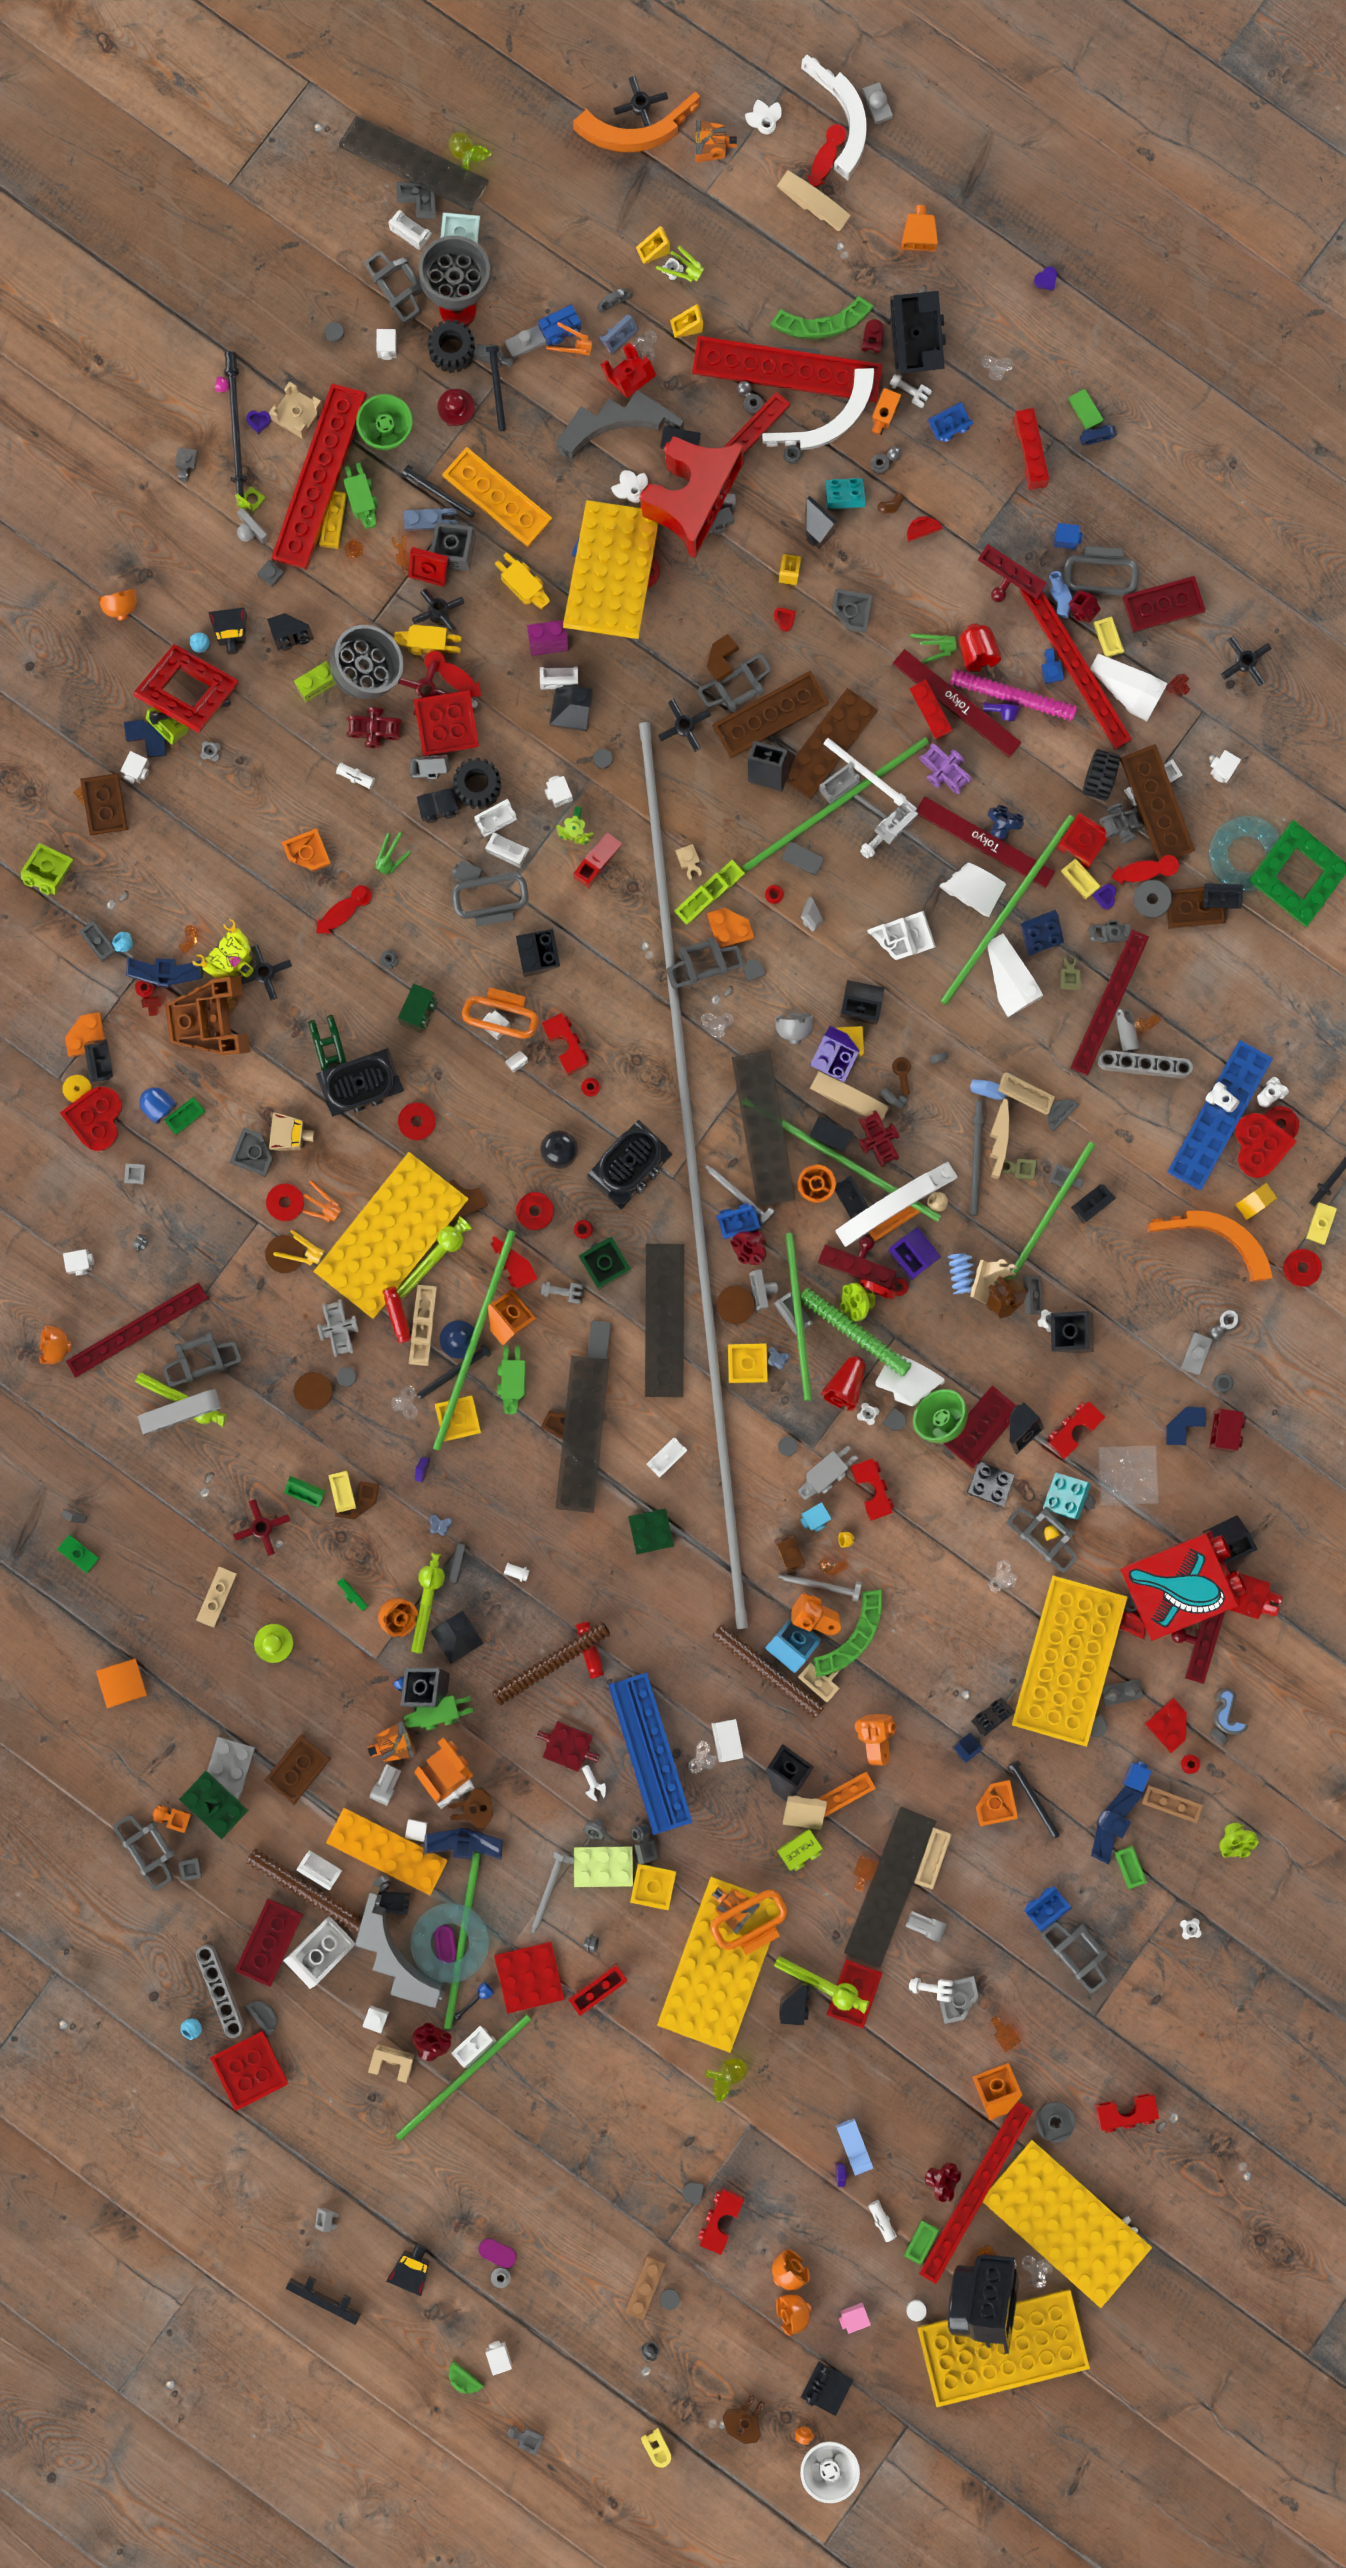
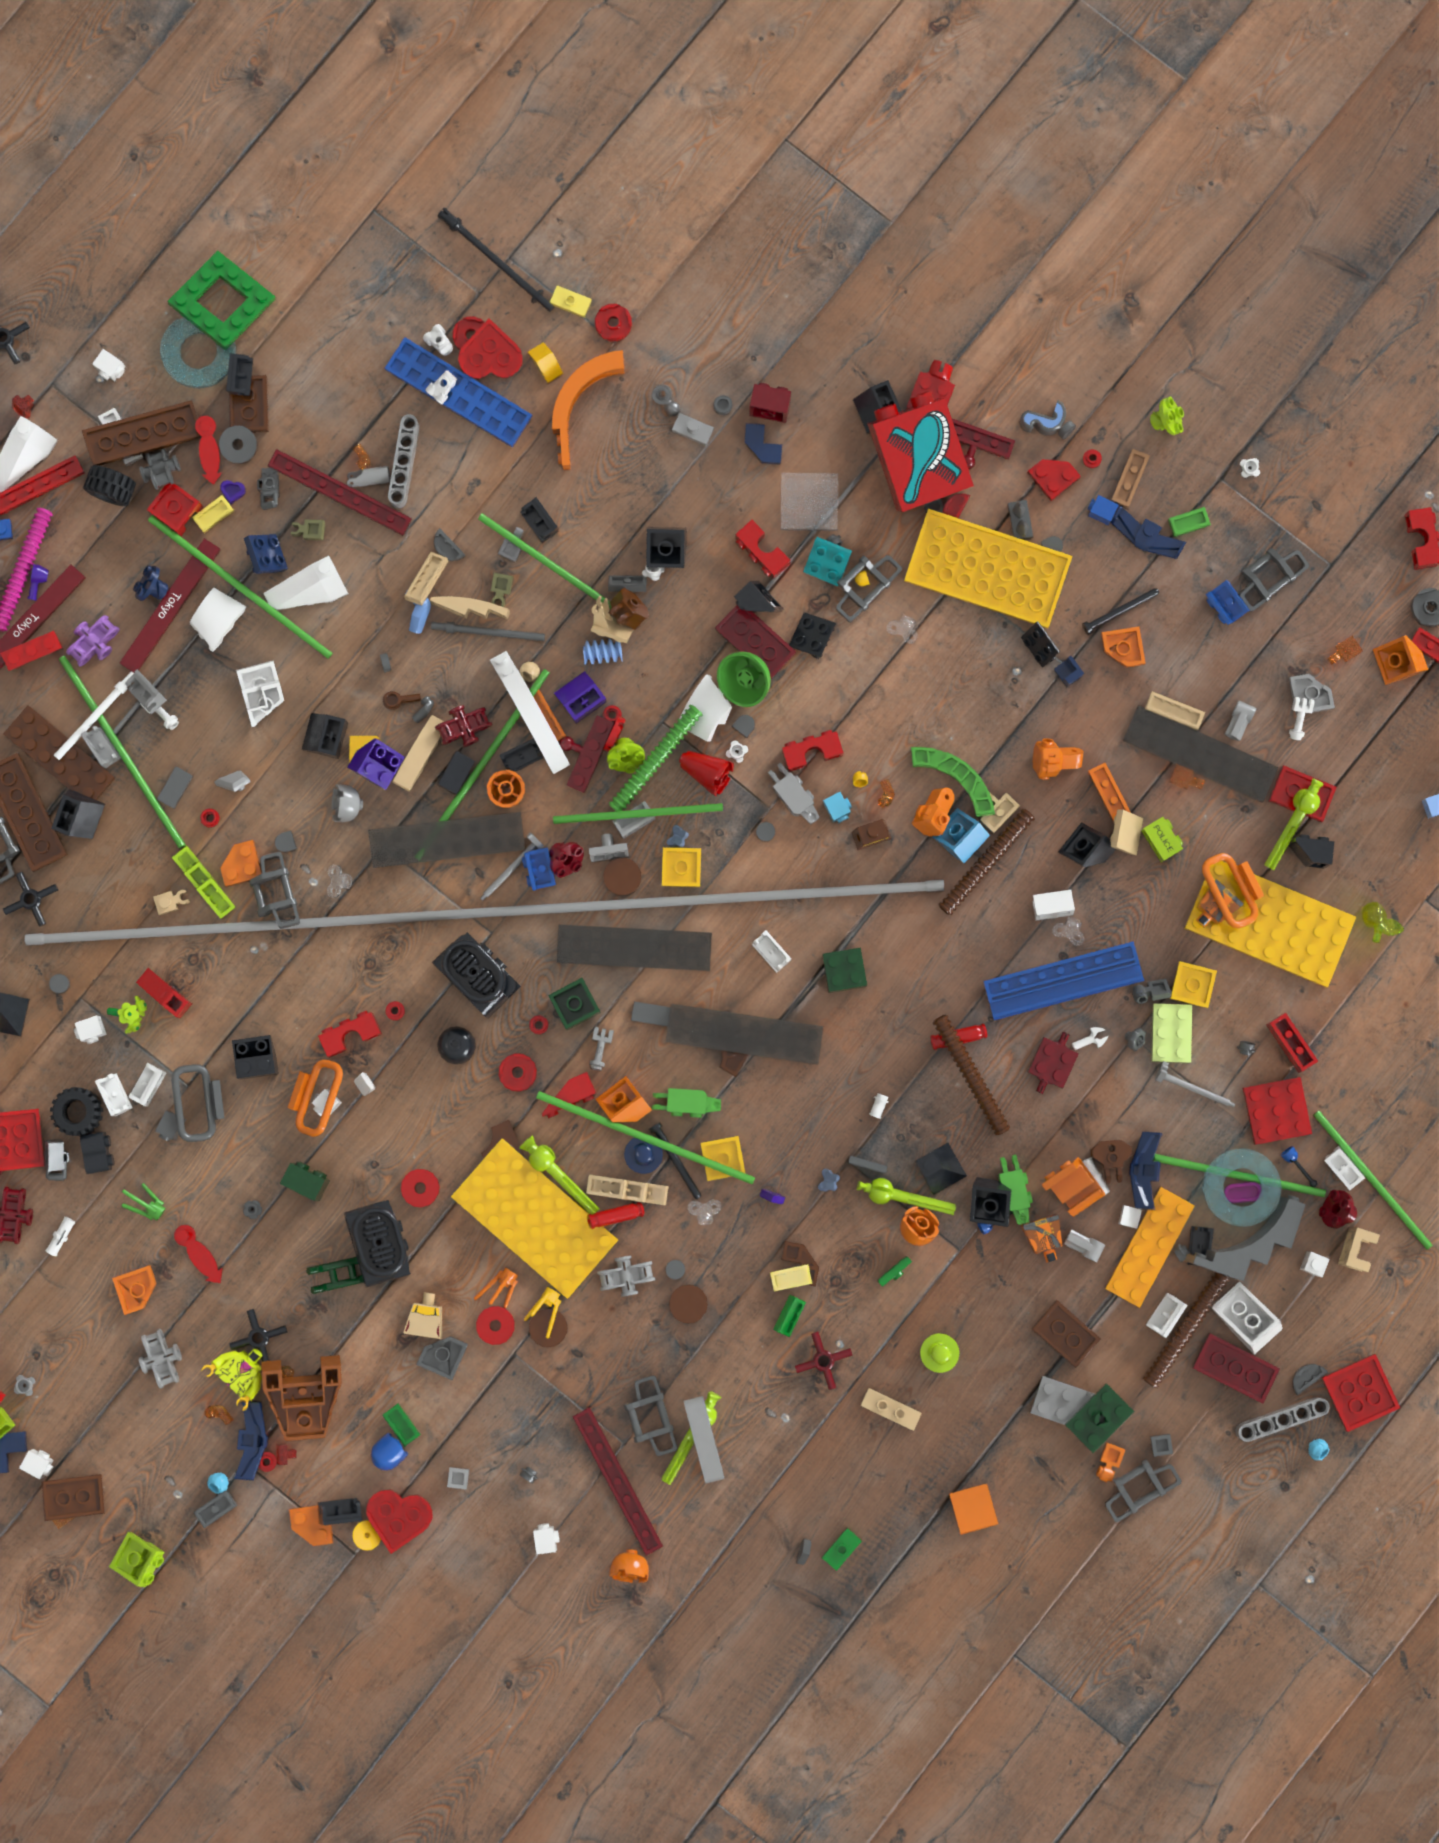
camera: 80 degrees left, 0 degrees up
(234, 882) = (162, 1365): none -> light grey axle
(852, 1592) = (913, 773): light grey piece -> none

